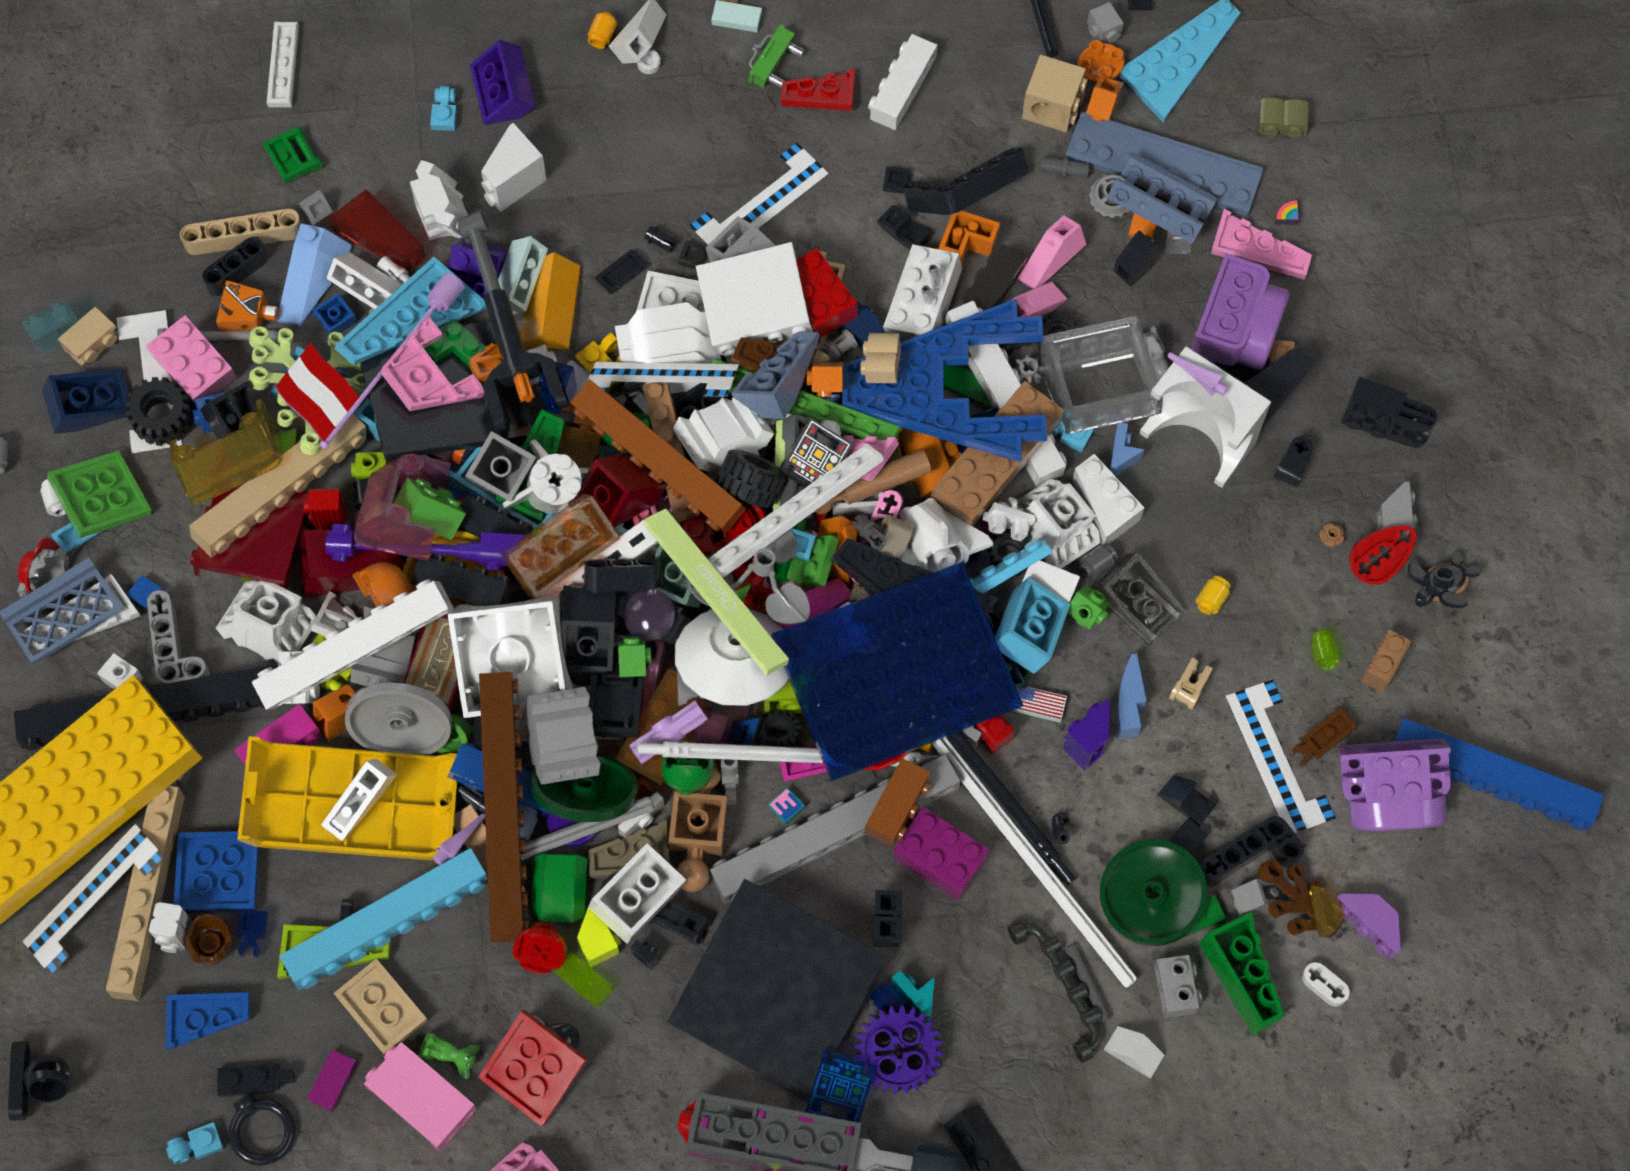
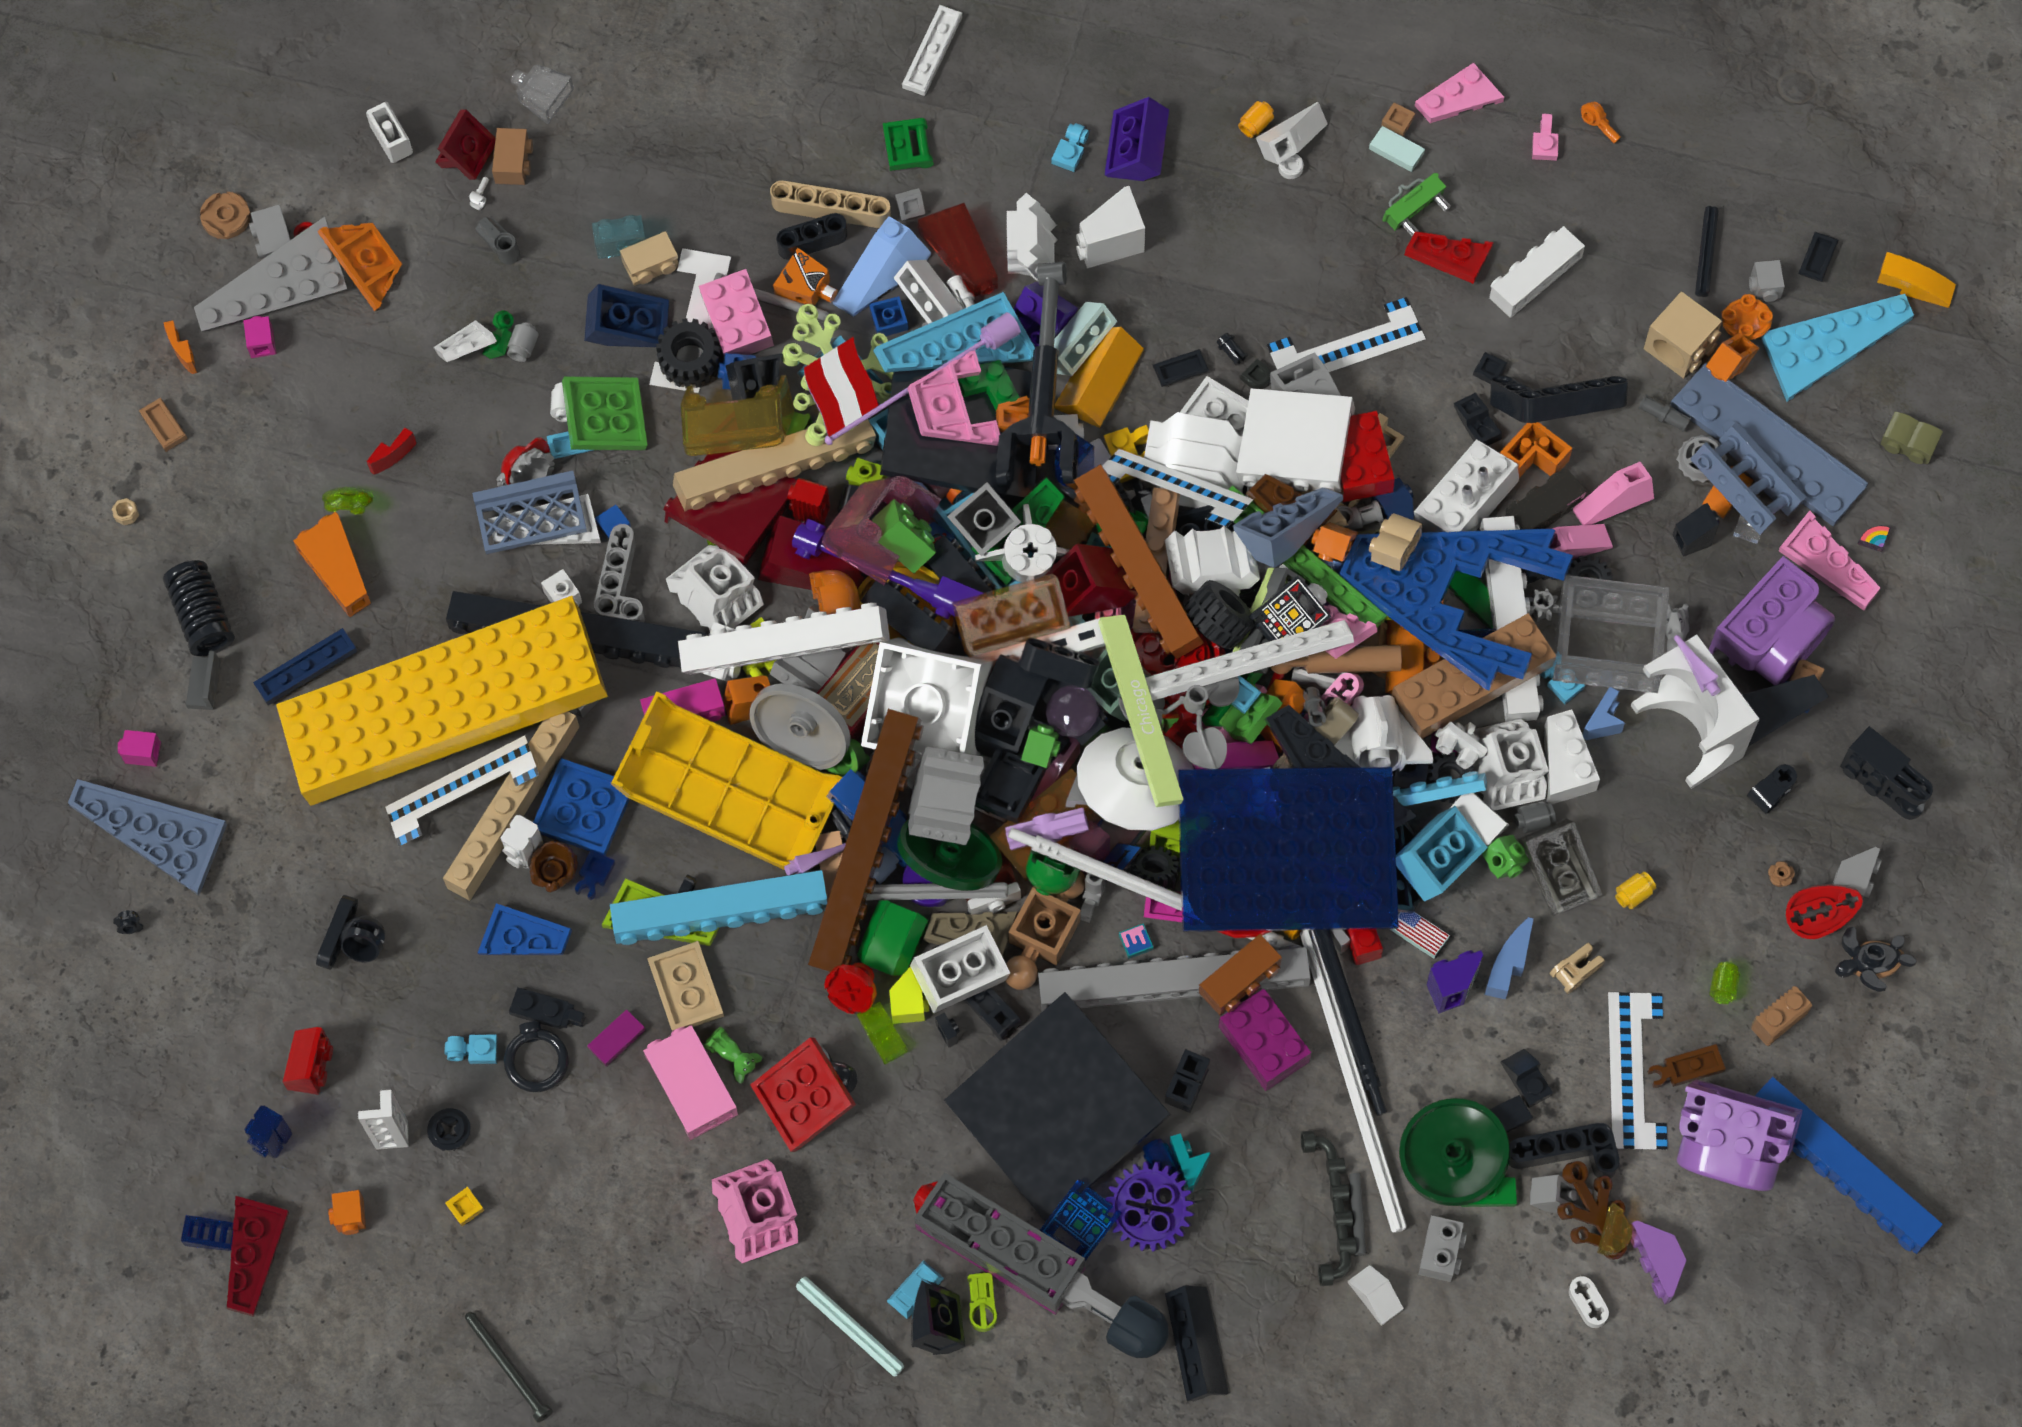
camera: 25 degrees right, 0 degrees up
(332, 616) = (777, 606): white wing -> none
(359, 798) = (737, 786): white slope -> none
(1058, 823) = (1392, 1052): black arm -> none
(1244, 972) = (1511, 1255): green wedge -> none

